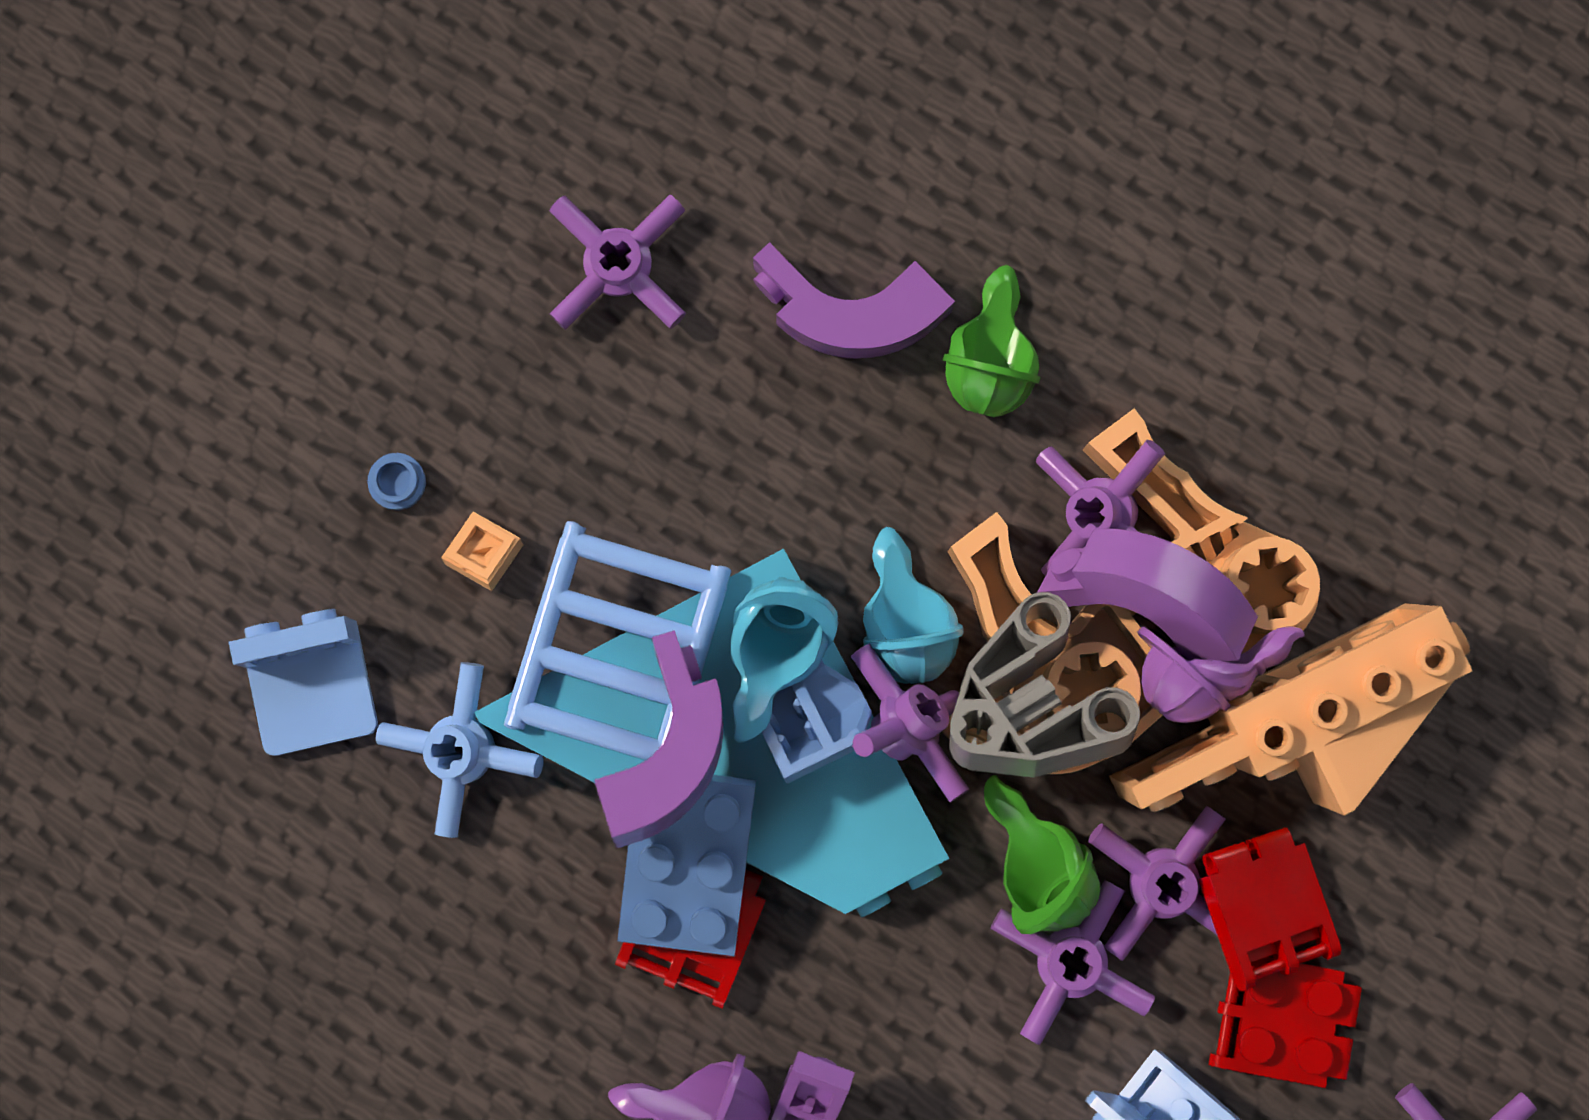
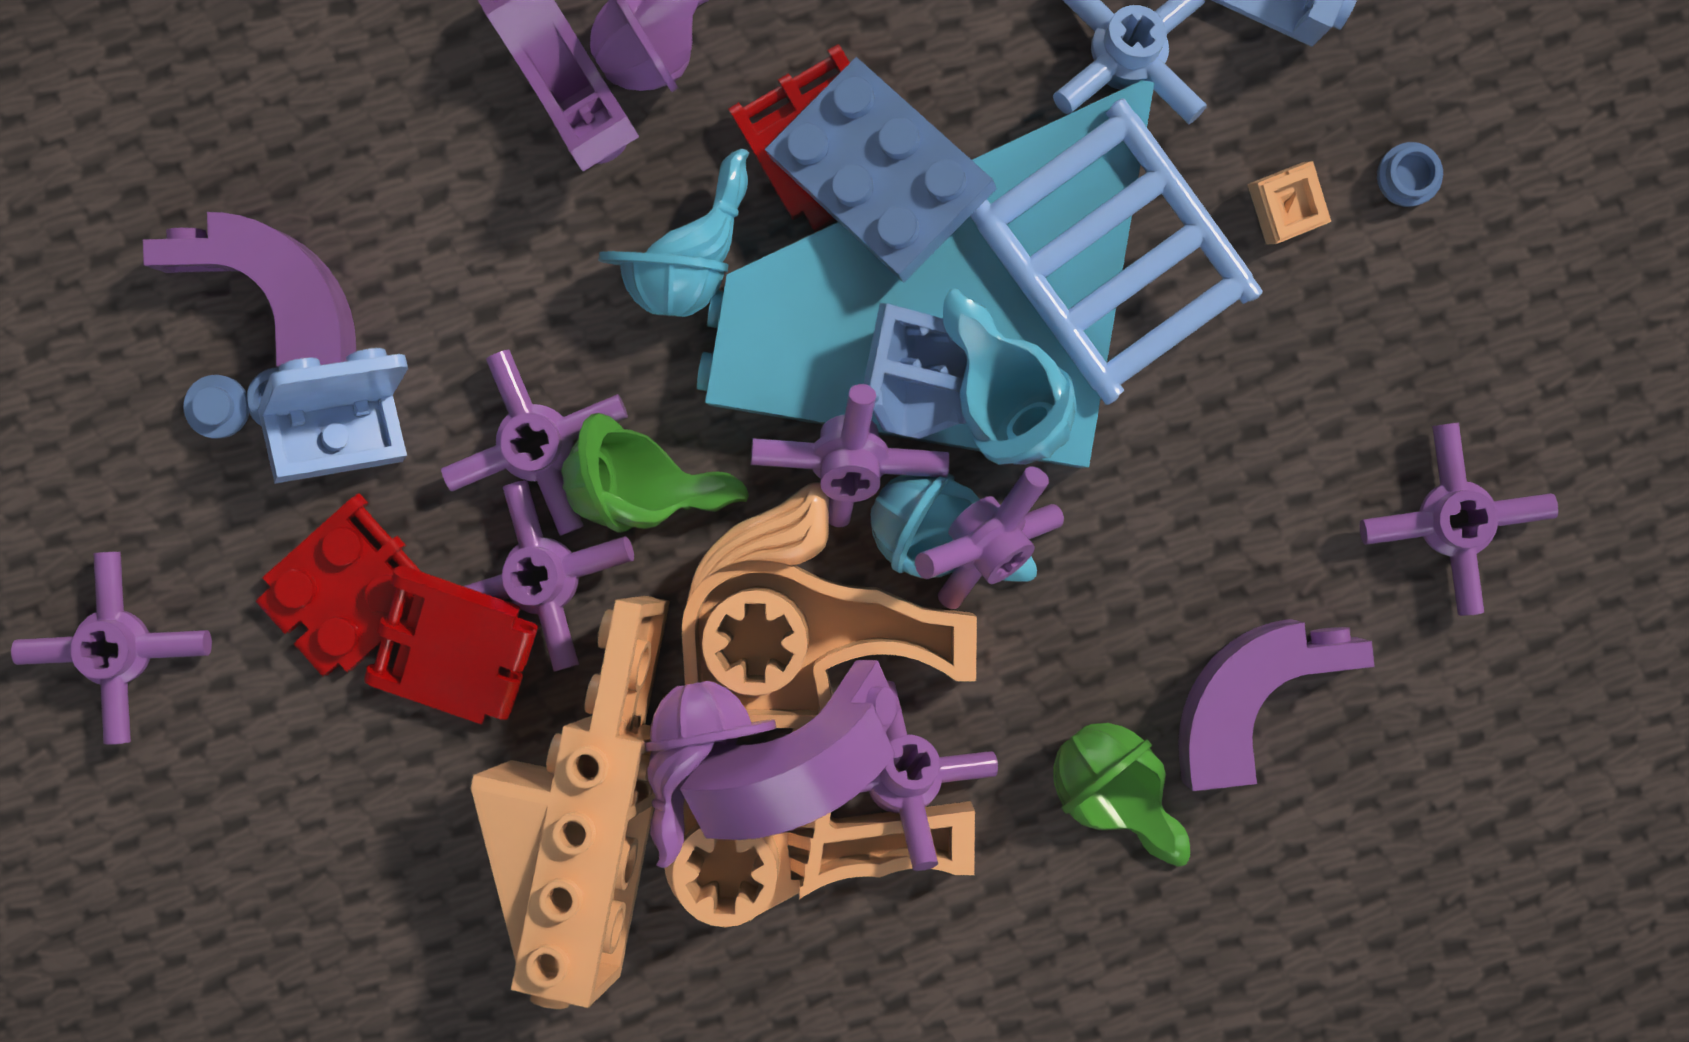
camera: 125 degrees right, 5 degrees up
(673, 779) = (967, 220): medium lavender arch -> none
(859, 948) = (687, 263): none -> medium azure piece
(889, 578) = (991, 539): none -> medium lavender bar
(1056, 743) = (731, 573): light grey connector -> none

